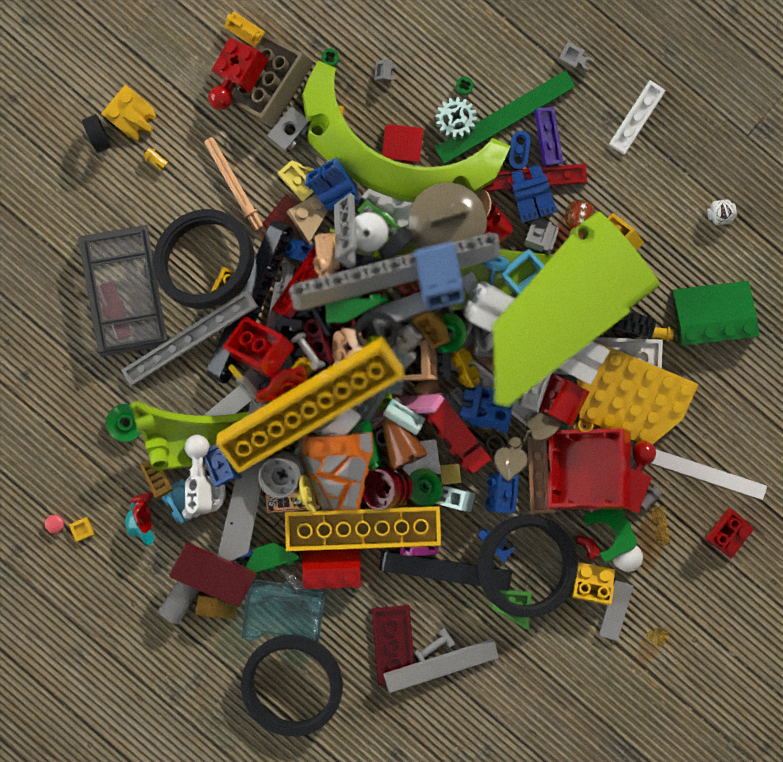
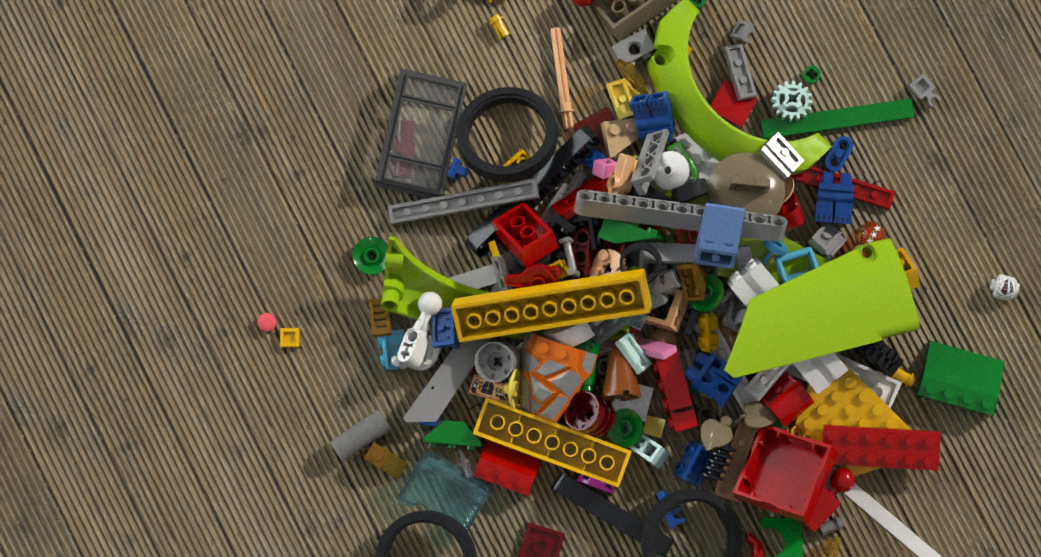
camera: 20 degrees right, 5 degrees down
(138, 518) = (347, 348): hair -> none
(171, 312) = (457, 171): none -> blue plate
(212, 574) = (395, 427): dark red tile -> none
(302, 157) = (629, 73): none -> clear yellow plate
(306, 253) = (603, 167): none -> bright pink slope
(397, 110) = (740, 72): none -> light grey tile
(467, 175) = (781, 155): none -> plate
(523, 485) = (717, 462): none -> black piece
(548, 136) = (870, 152): dark purple plate -> none
(637, 117) = (959, 168): white tile -> none
(670, 407) = (884, 447): none -> red plate

